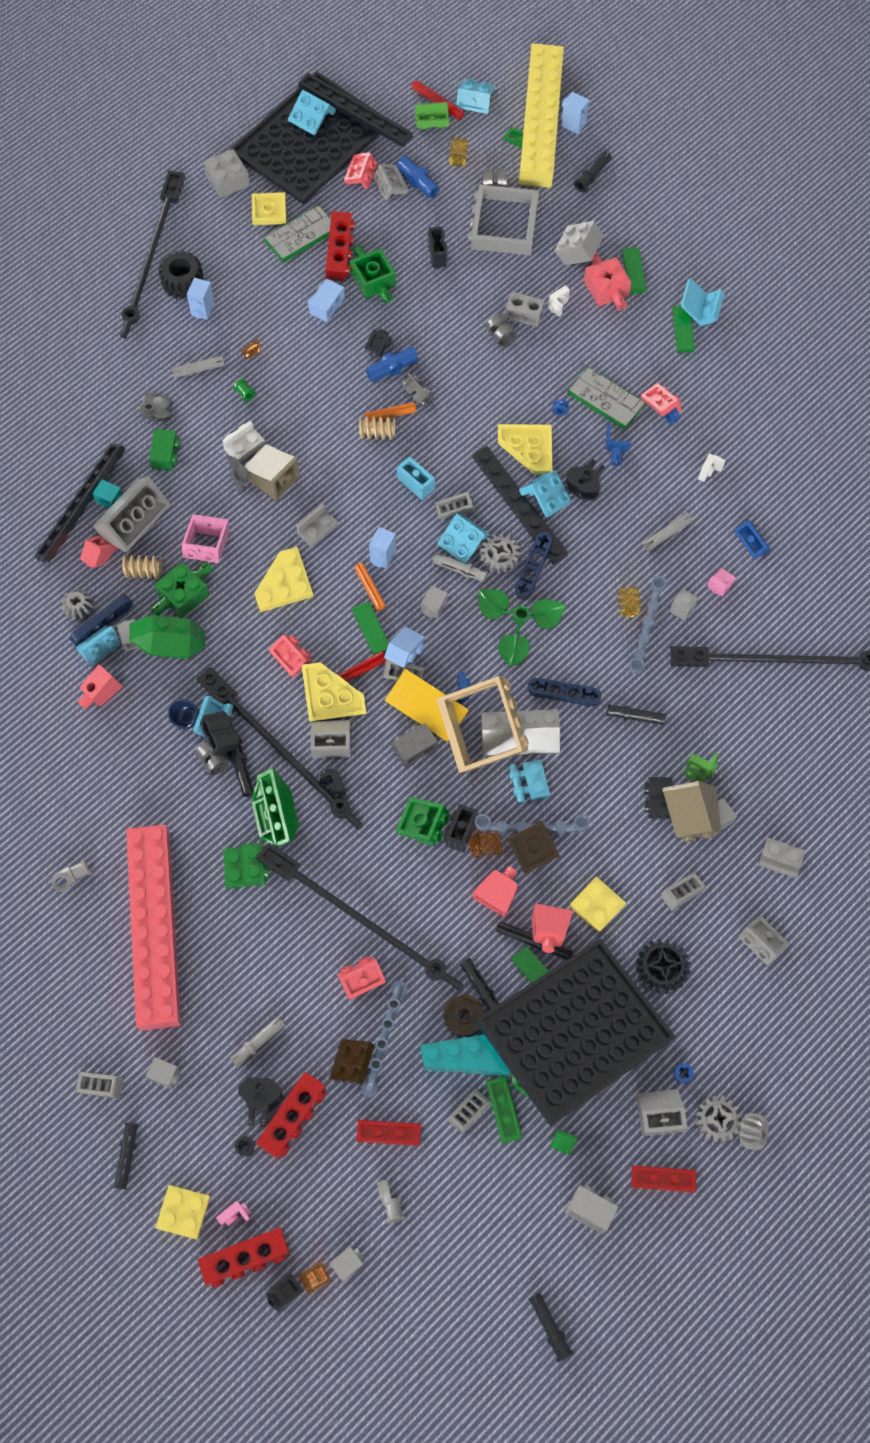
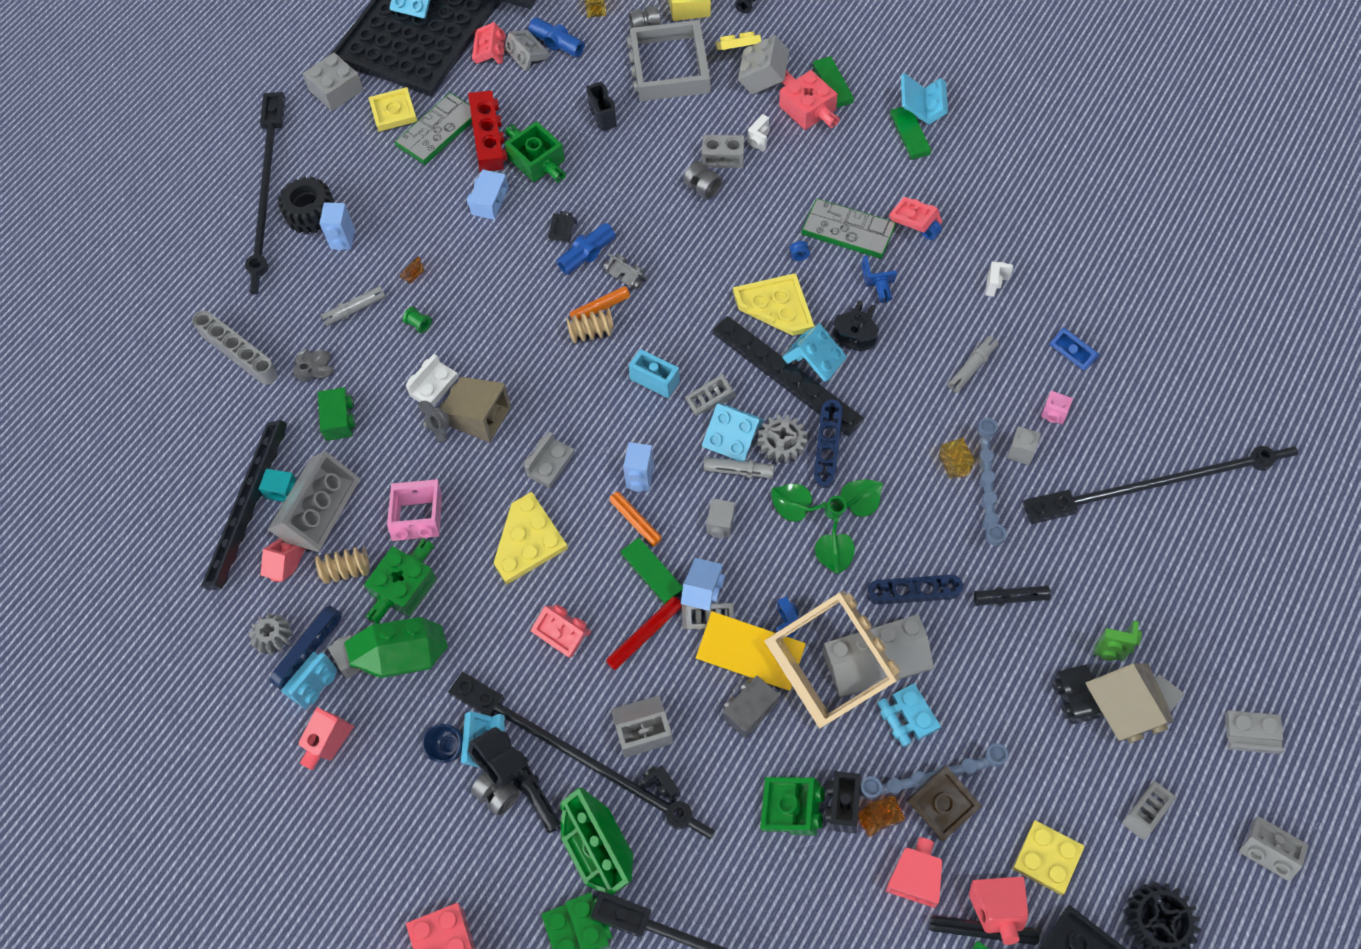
camera: 10 degrees left, 5 degrees down
(99, 378) = (235, 347): none -> light grey beam
(329, 694) = (624, 669): light yellow plate -> none
(572, 216) = (730, 41): none -> light yellow plate

